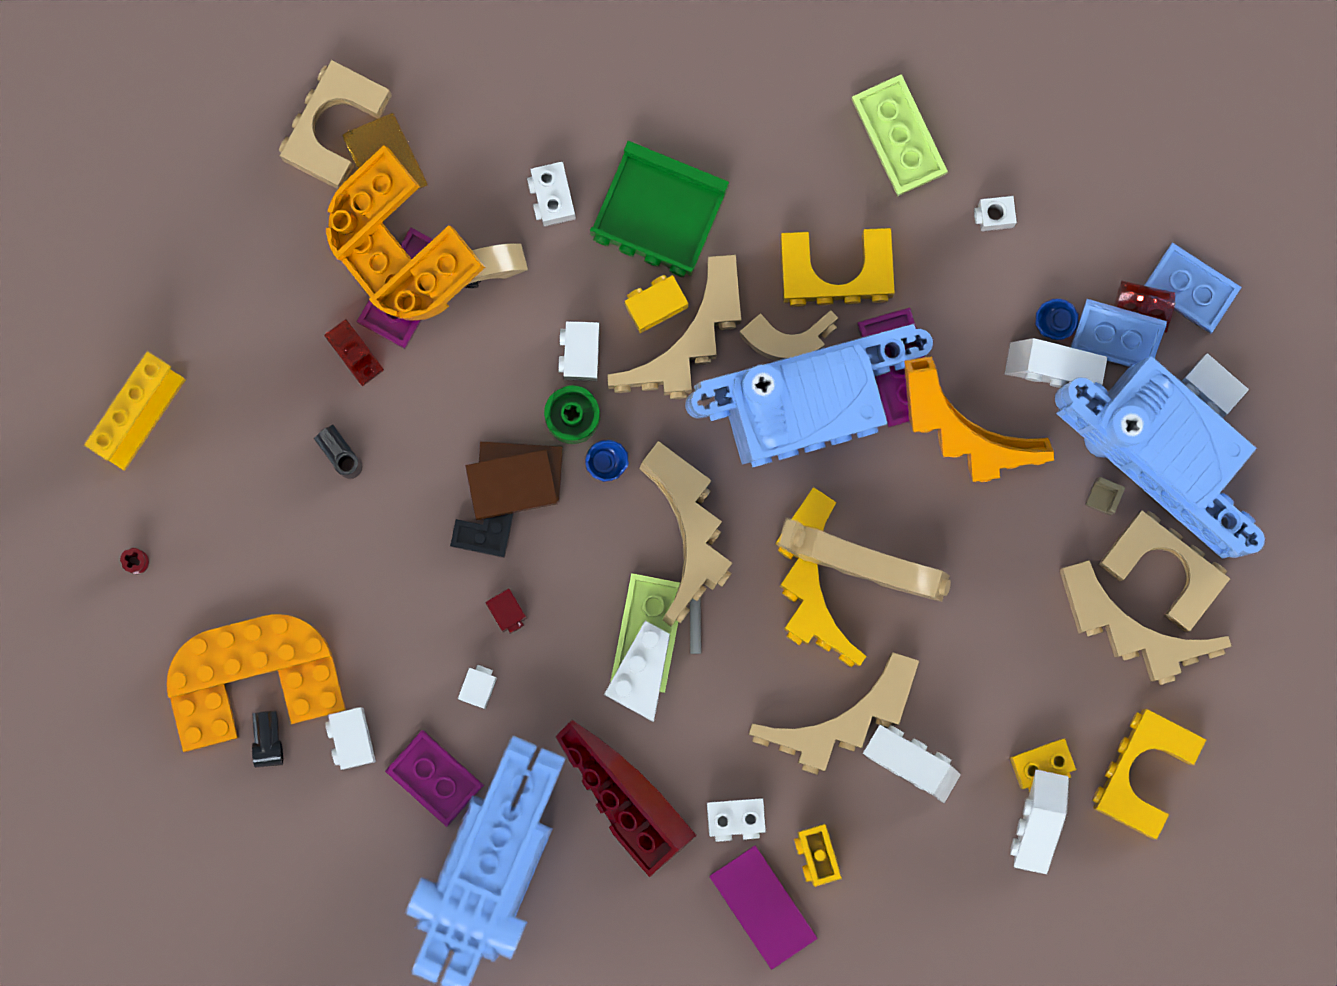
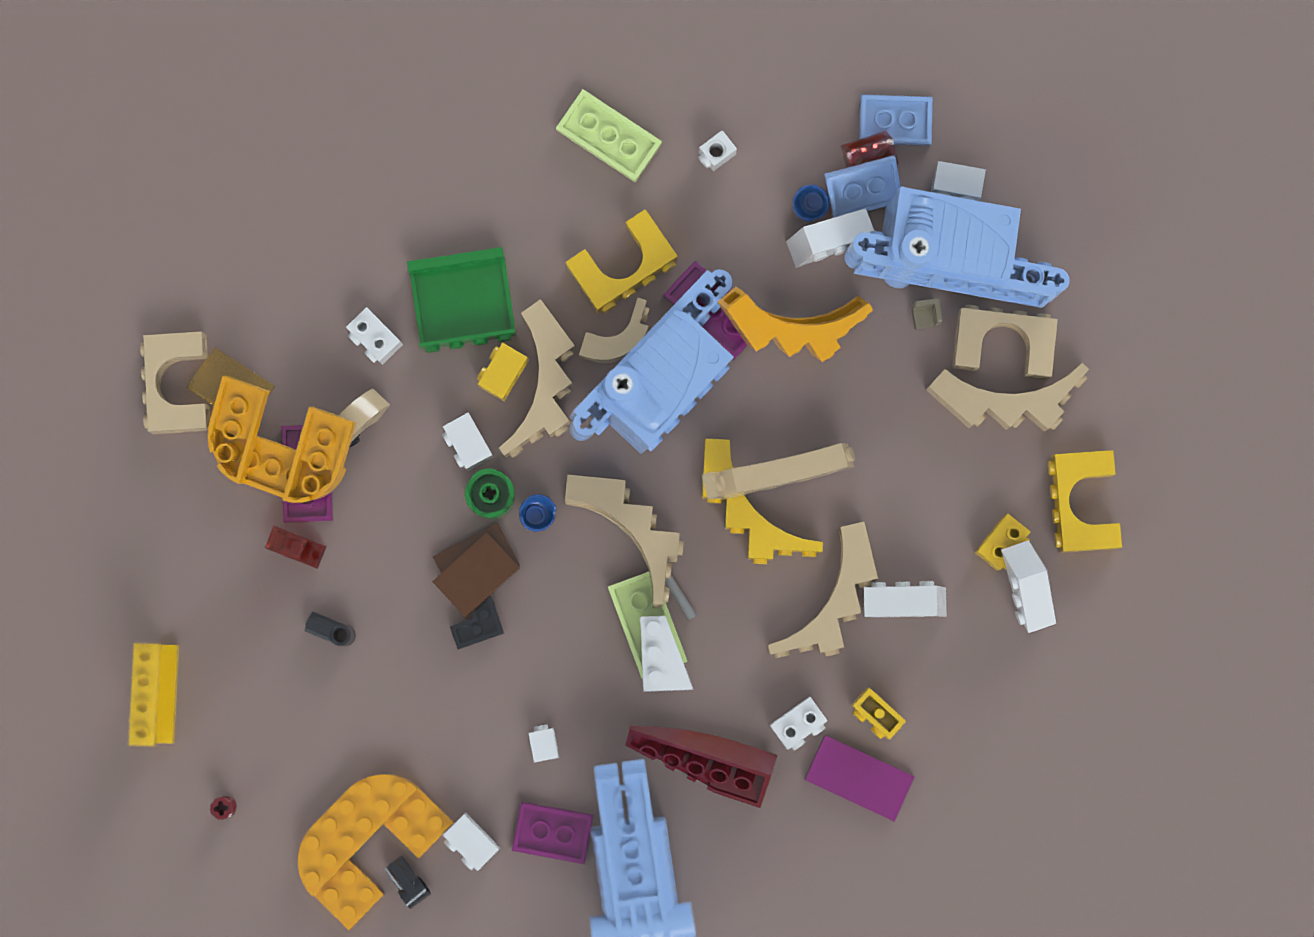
camera: 30 degrees left, 0 degrees up
(506, 611) = (531, 673): dark red brick -> none

